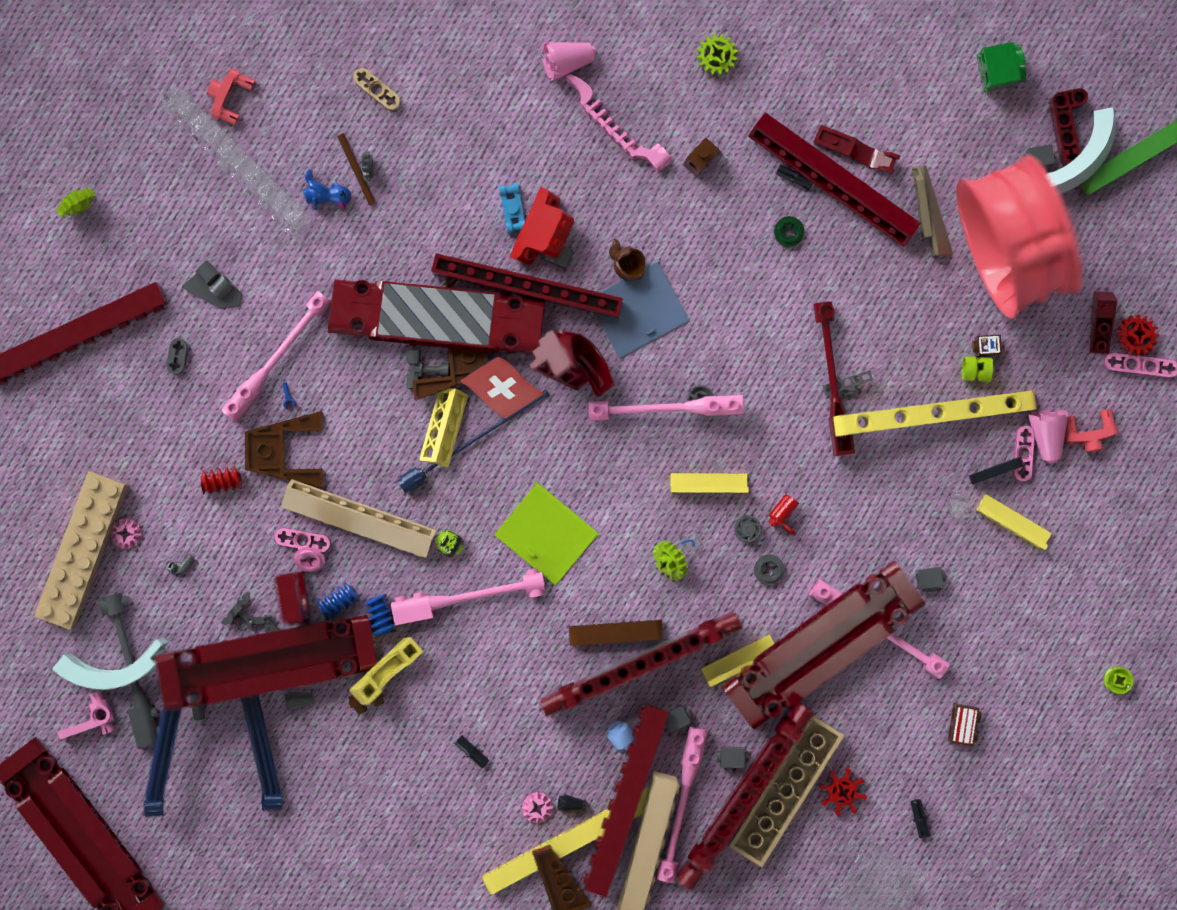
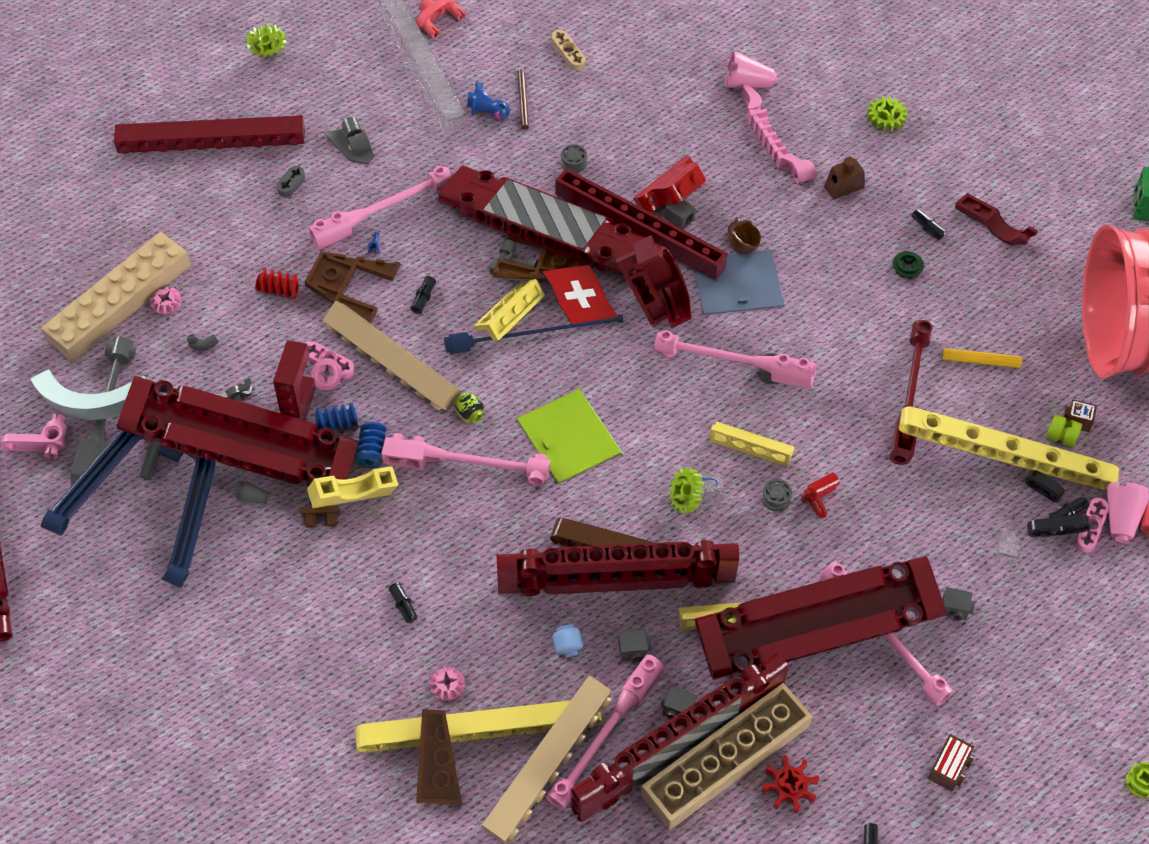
camera: 25 degrees right, 30 degrees down
(357, 442) = (423, 294): none -> black pin
(367, 166) = (534, 94): dark grey gear -> none
(434, 227) = (574, 159): none -> dark grey wheel
(512, 207) = (651, 168): dark azure plate -> none
(571, 804) = (485, 690): black cone -> none
(626, 800) = (544, 698): dark red brick -> none
(778, 571) = (791, 534): dark grey gear -> none
(834, 179) = (968, 235): dark red brick -> none
(842, 386) = (934, 403): dark grey piece -> none
(884, 312) = (982, 358): none -> yellow axle
(929, 214) = (1051, 295): dark tan wedge -> none
(974, 431) = (1044, 485): none -> black beam
(1001, 447) = (1072, 508): none -> black axle
(1013, 522) = (1063, 584): light yellow fence -> none

